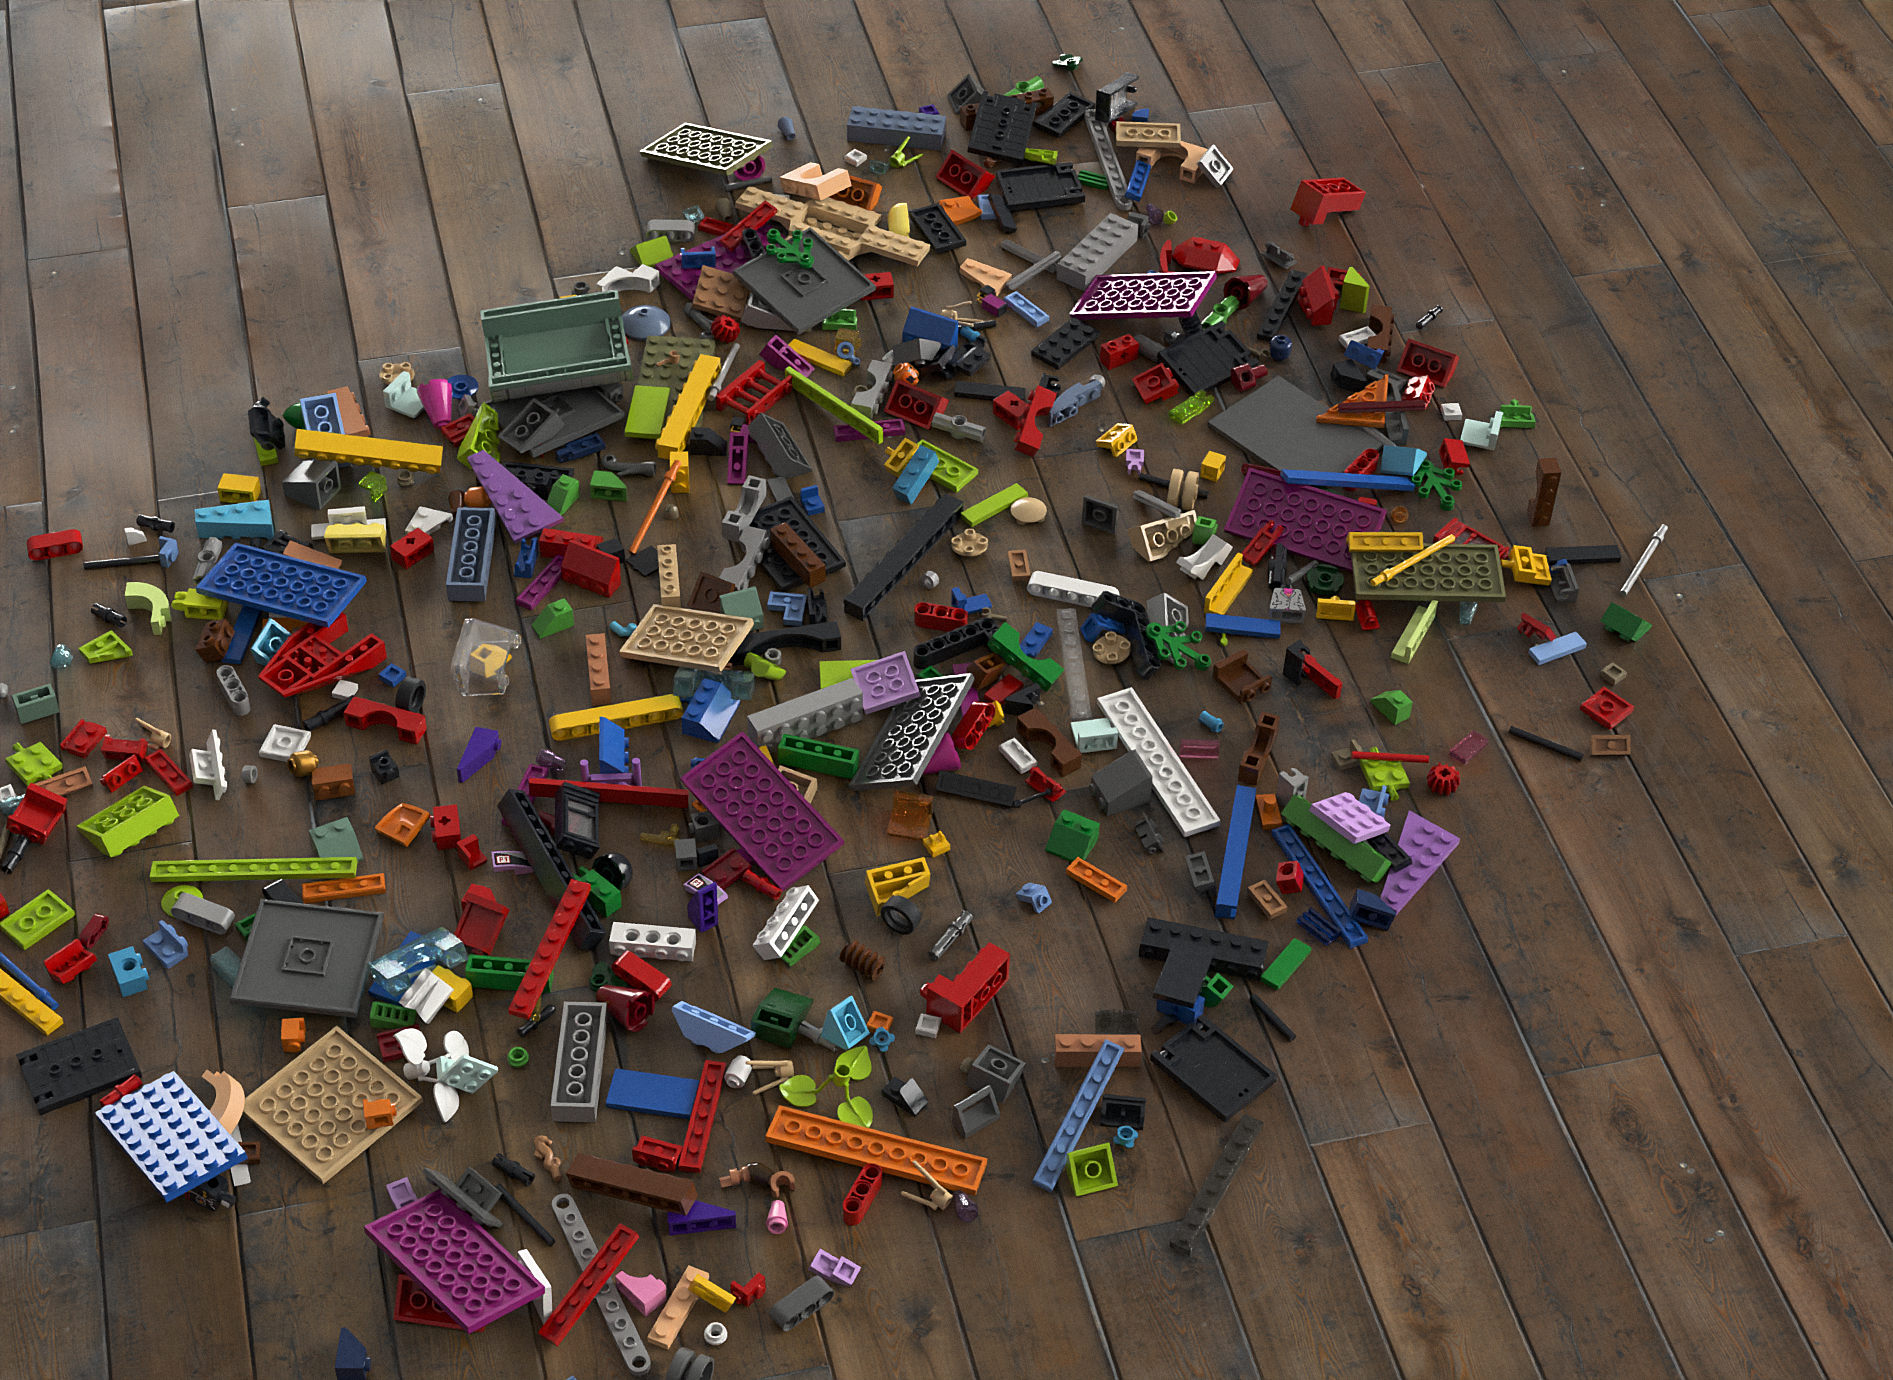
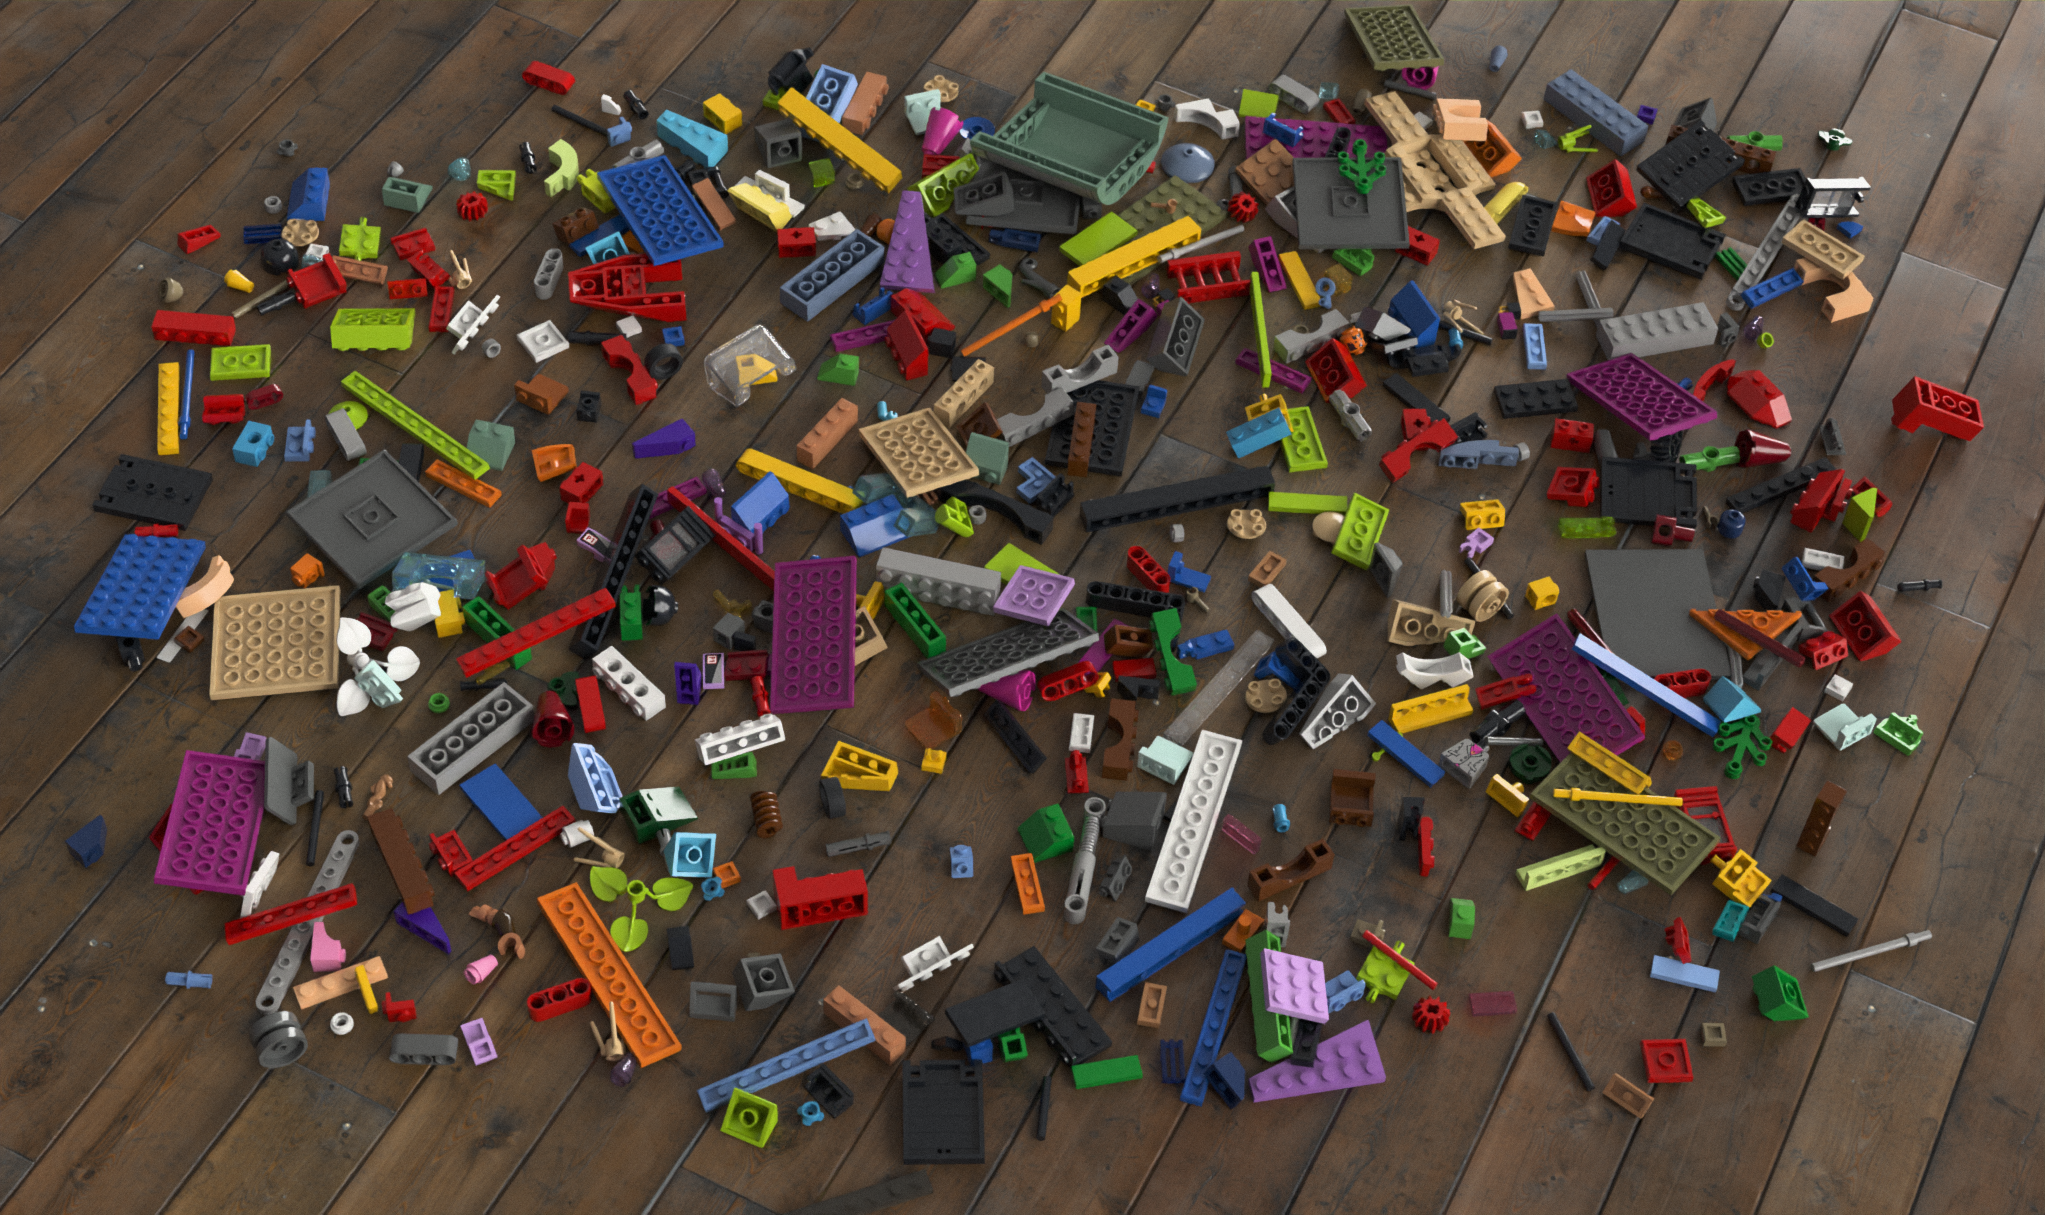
camera: 40 degrees right, 5 degrees up
(104, 678) = (472, 206): none -> red gear
(302, 763) = (534, 364): pearl gold head -> none
(379, 1113) = (290, 672): orange brick -> none
(719, 422) = (1151, 286): none -> cone
(754, 220) = (1356, 125): red tile -> none
(1017, 803) = (1038, 774): black hinge -> none
(1051, 500) = (1360, 531): none -> lime tile
(1089, 978) = (926, 959): none -> white bracket
(1145, 869) = (1084, 862): none -> light grey piece
(1177, 644) = (1320, 727): green plant -> none
(1215, 166) = (1862, 316): light grey plate -> none
(1289, 877) = (1190, 1000): red brick -> none
(1442, 618) = (1606, 869): none -> red bar
(1549, 596) = (1730, 920): none -> teal plate

